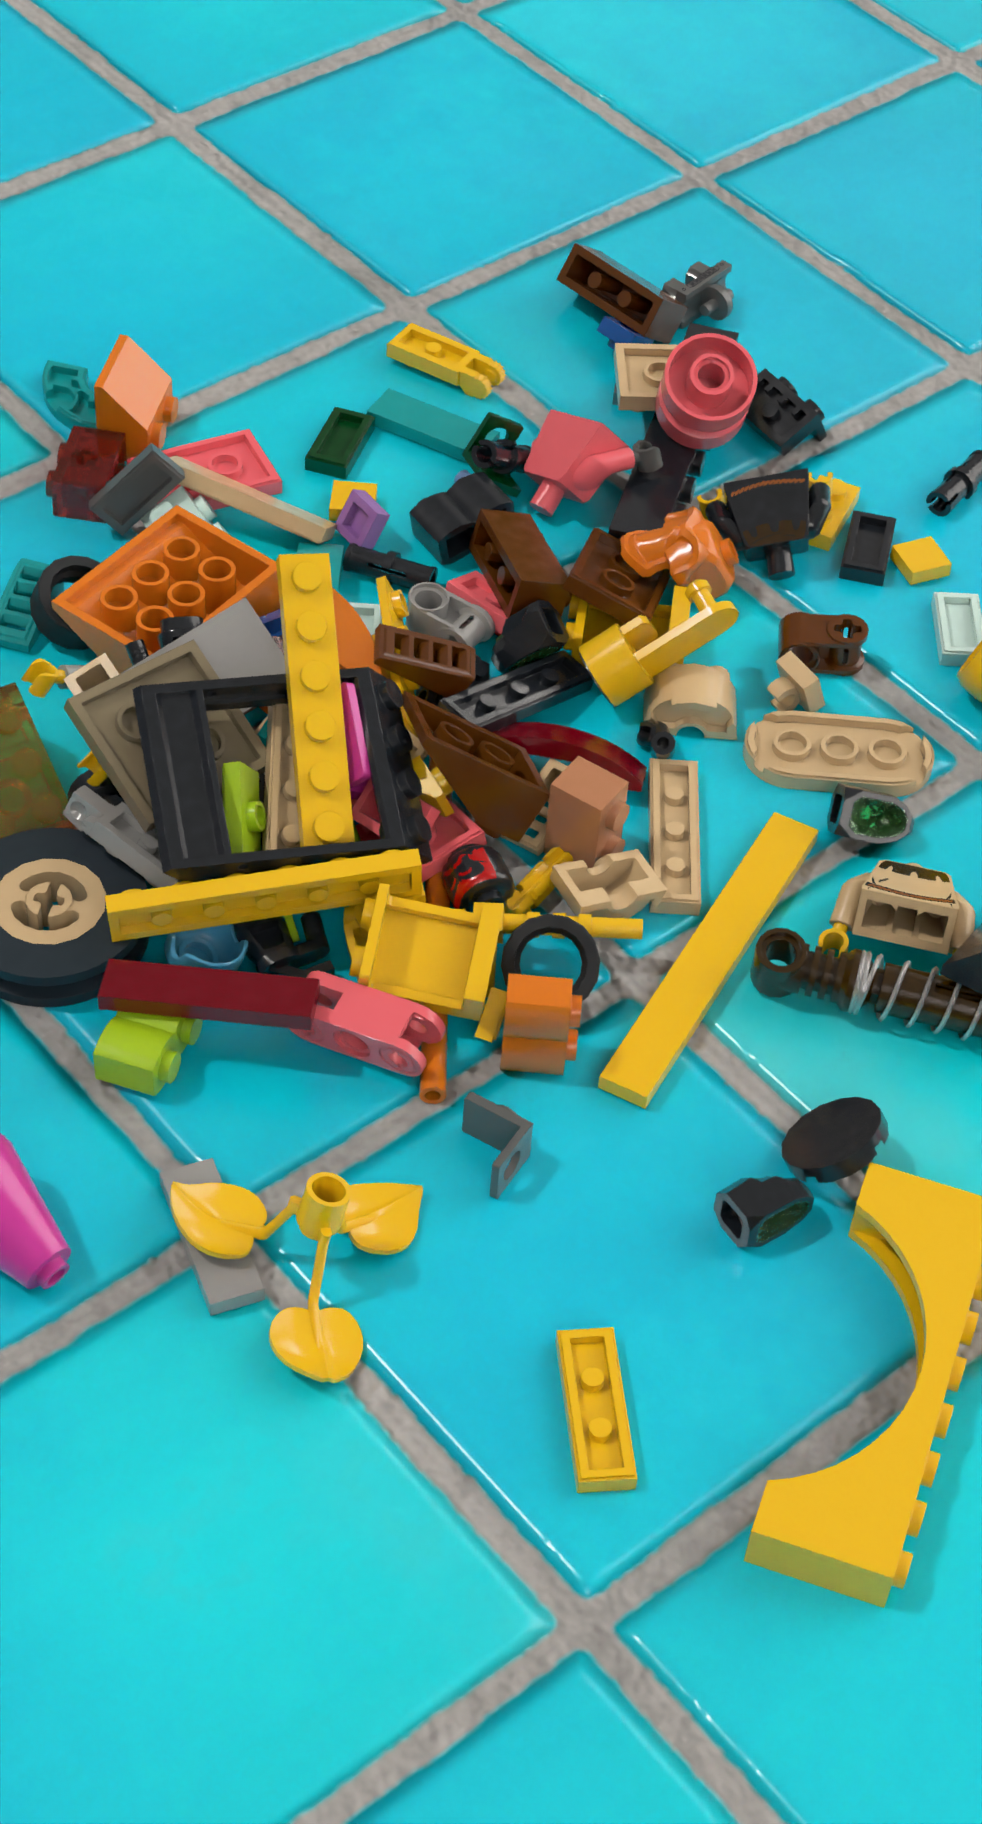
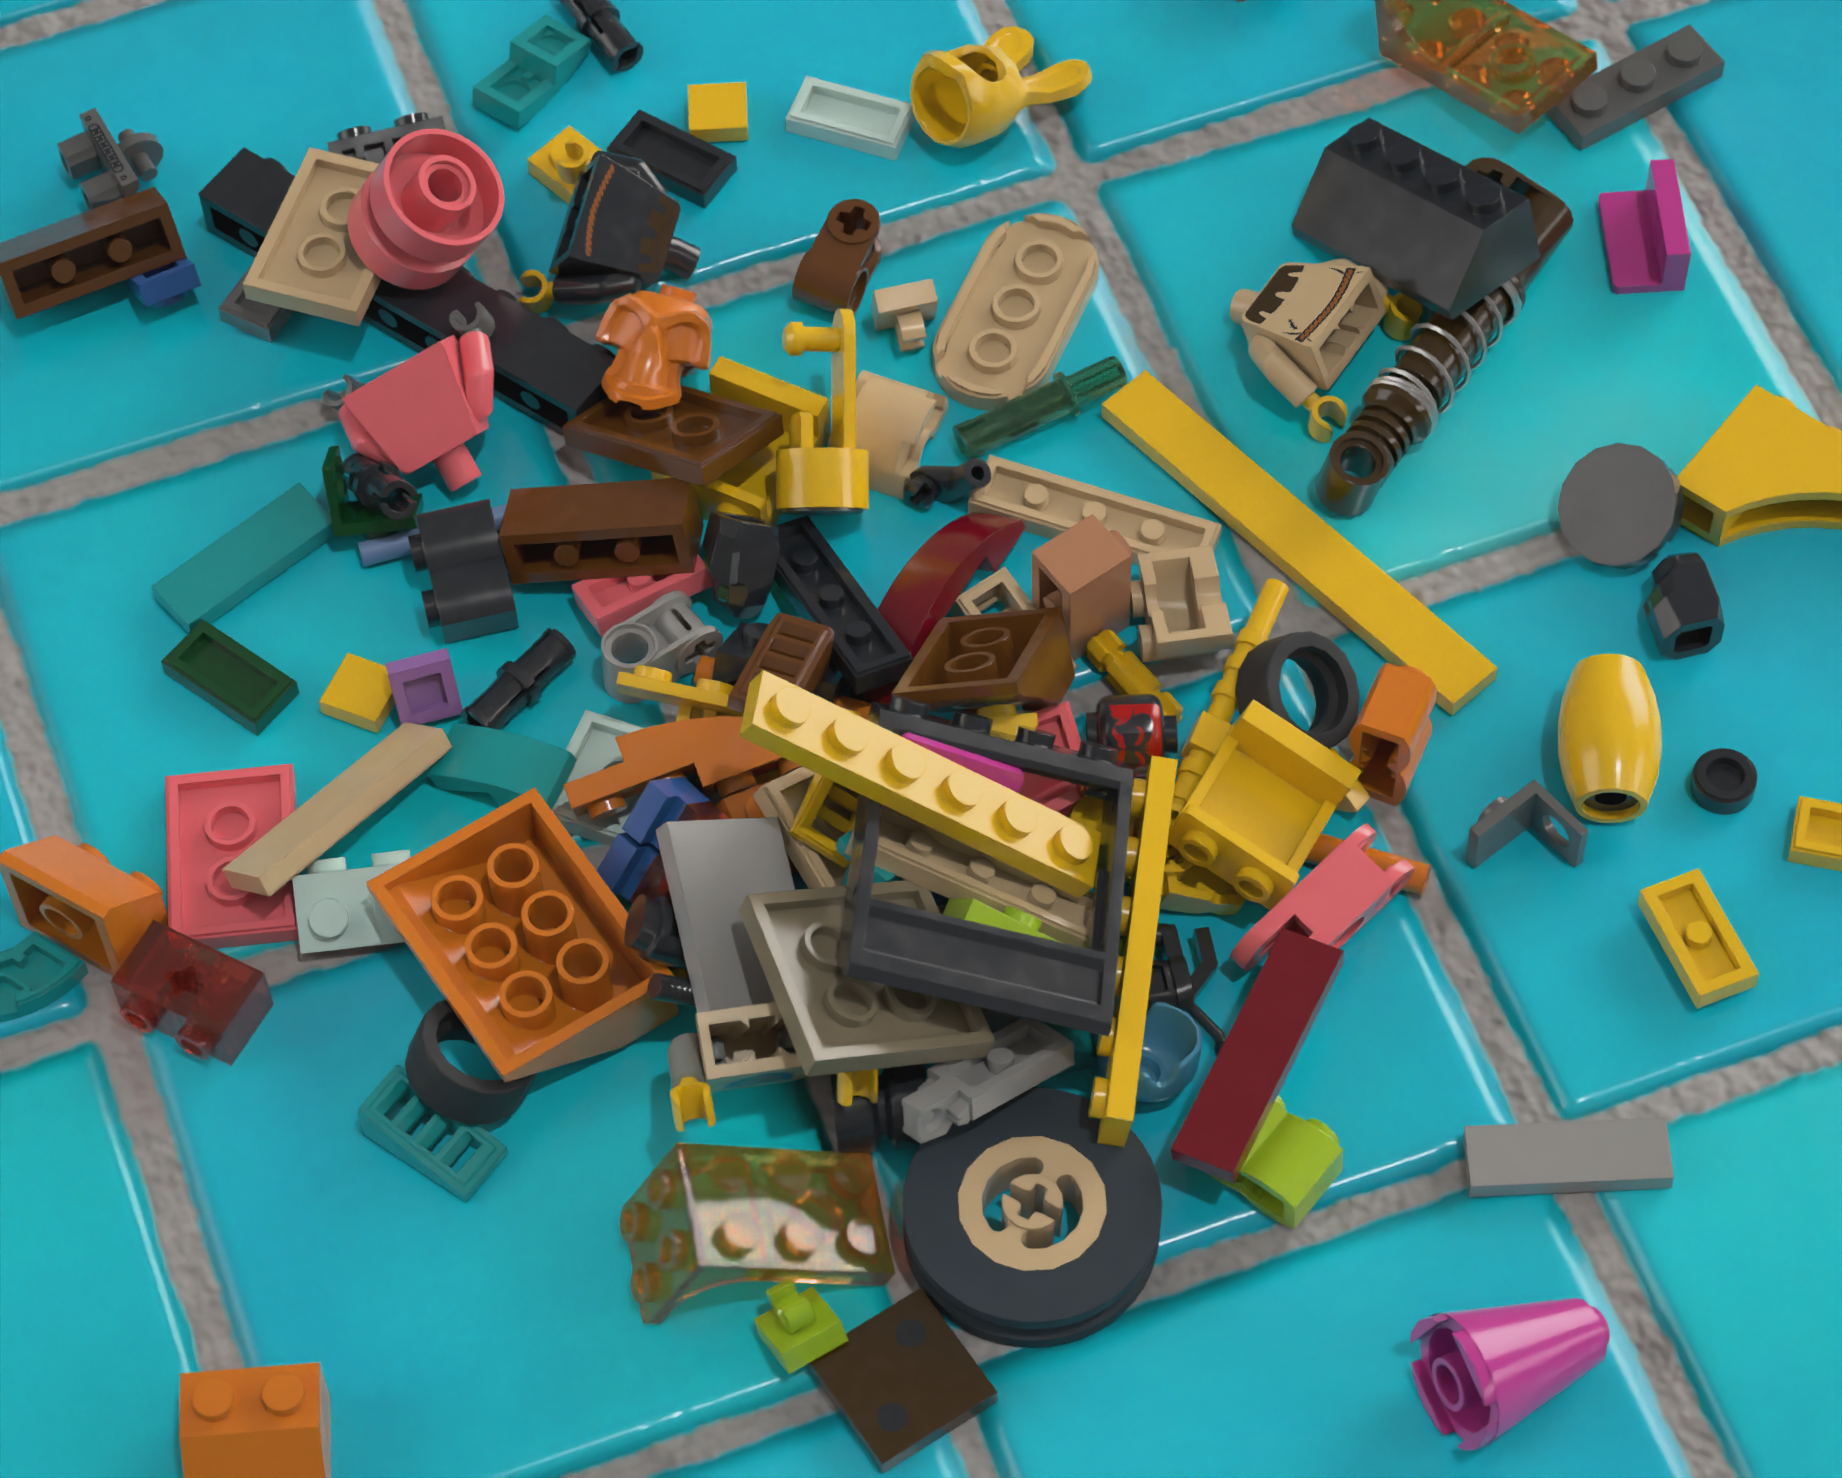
camera: 65 degrees left, 10 degrees up
(136, 489) = (286, 931): dark grey tile -> none
(378, 1219) = (1576, 1137): yellow plant -> none
(442, 1279) = (1697, 938): none -> yellow plate
(446, 360) = (115, 503): yellow hinge -> none
(603, 1174) = (1609, 738): none -> yellow piece
(610, 1276) = (1723, 781): none -> black tile
(742, 772) = (1038, 407): none -> clear green axle
(868, 815) = (1145, 315): rock -> none
(912, 467) = (536, 70): none -> teal slope

